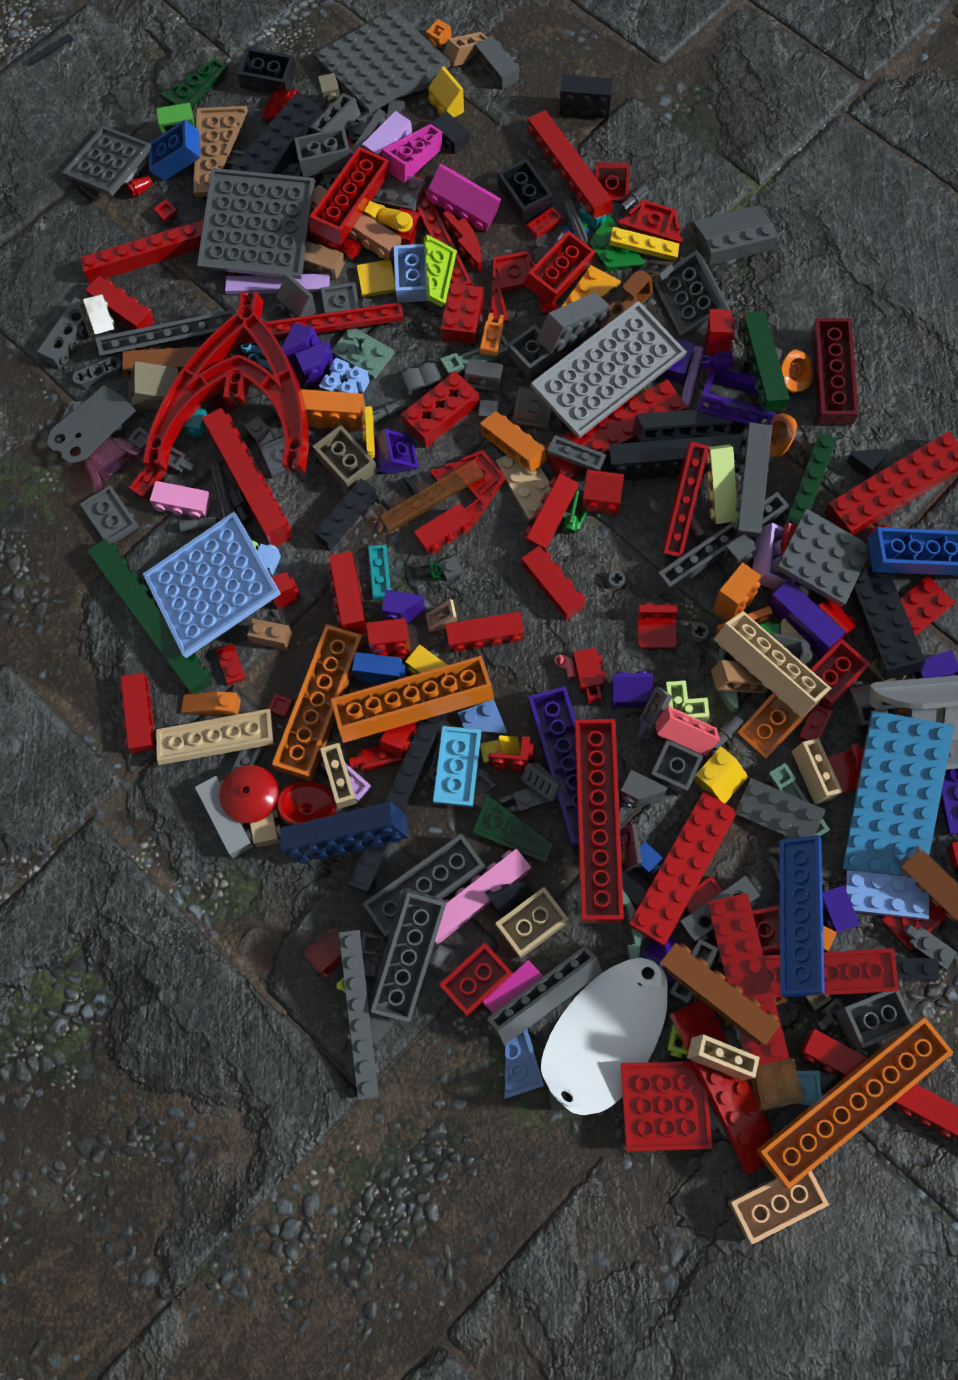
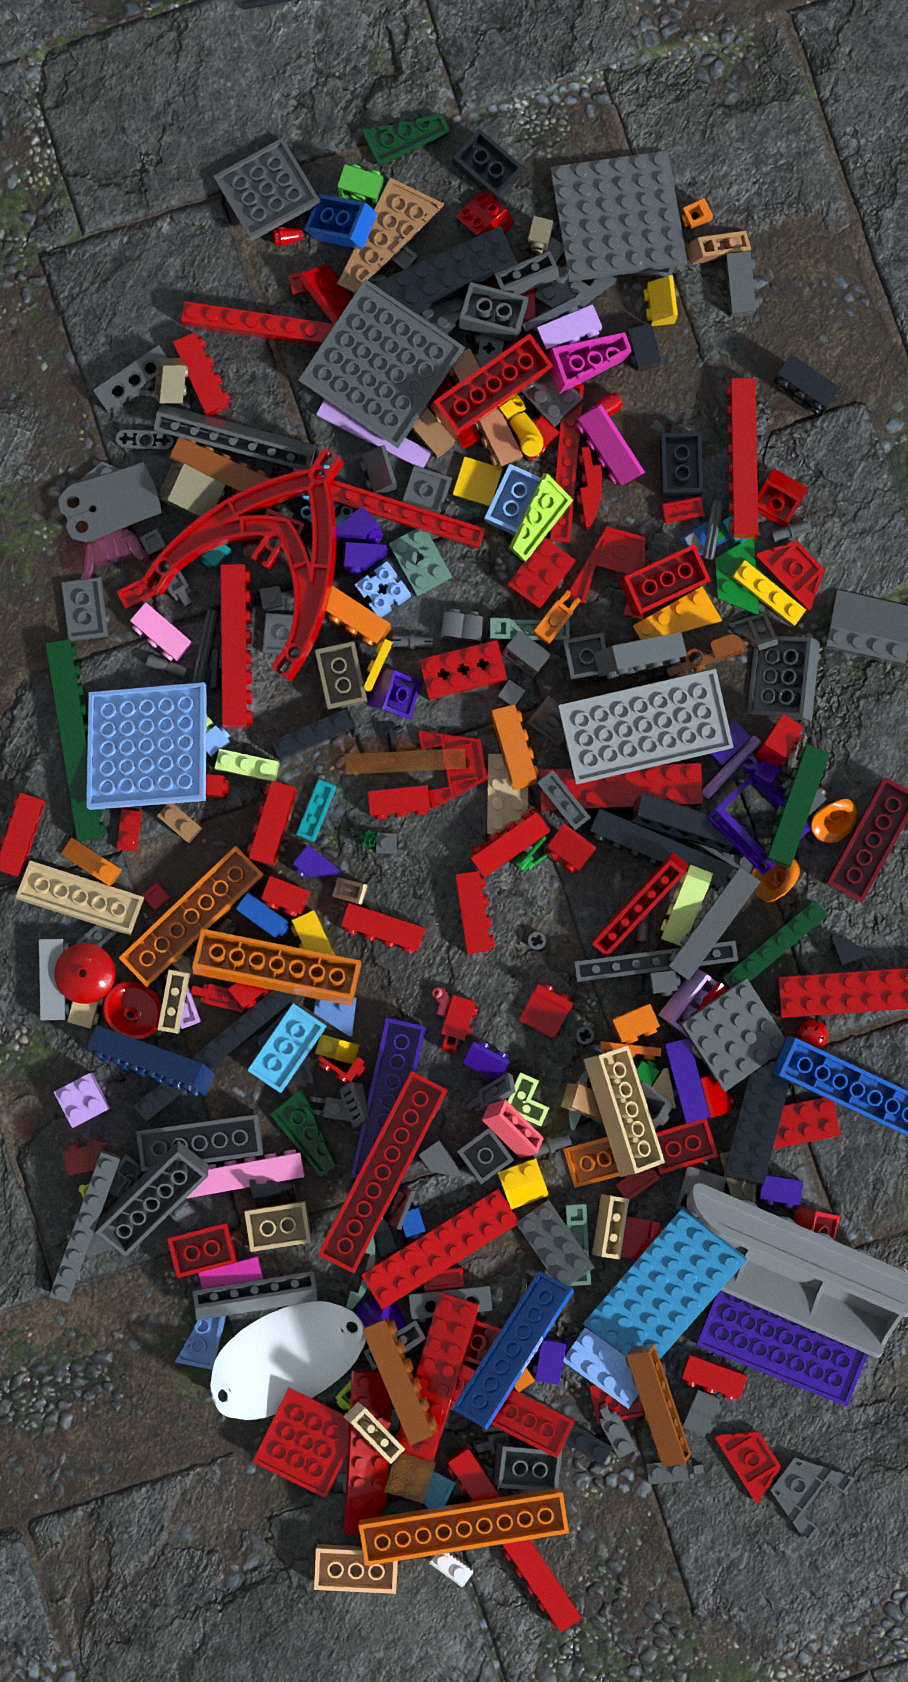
camera: 25 degrees right, 15 degrees up
(185, 201) = (323, 287): none -> red plate
(300, 905) = (82, 1100): none -> lavender brick
(303, 562) = (247, 765): none -> yellowish green brick
(863, 1151) = (452, 1567): none -> white brick

